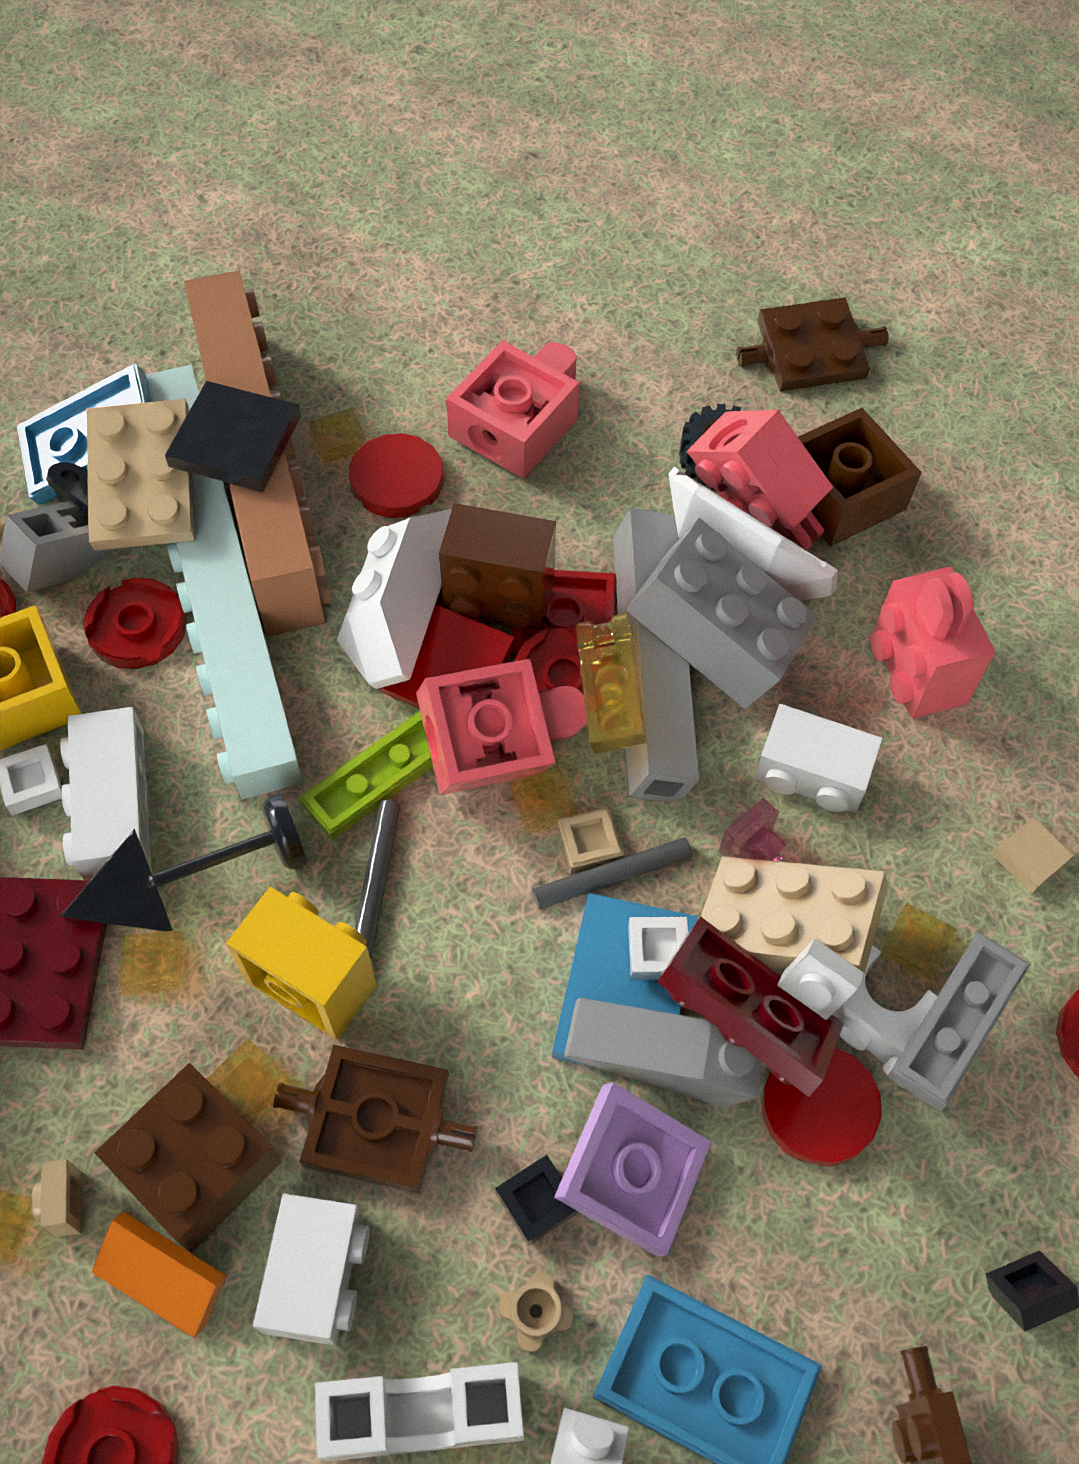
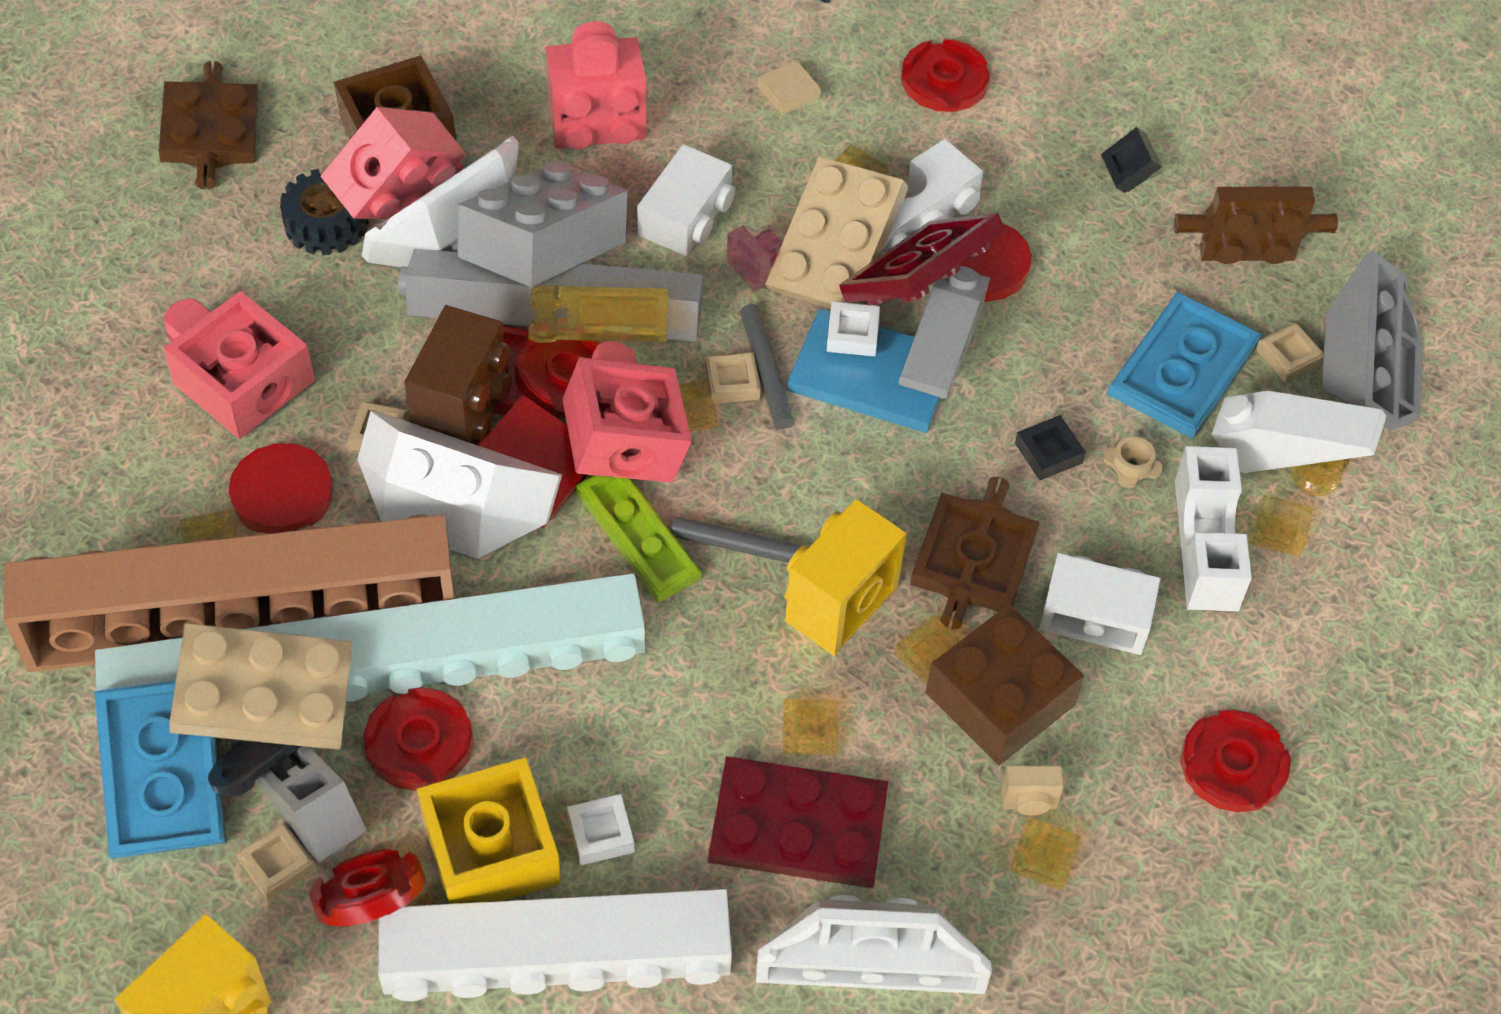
camera: 85 degrees left, 5 degrees down
(105, 787) = (632, 752): white brick -> none
(127, 891) = (747, 727): black piece -> none
(158, 1274) = (1097, 716): orange tile -> none
(233, 436) = (262, 569): black tile -> none
(633, 1169) = (1033, 375): lavender plate -> none
(820, 979) = (906, 212): white plate -> none
(958, 1021) = (940, 144): light grey tile -> none

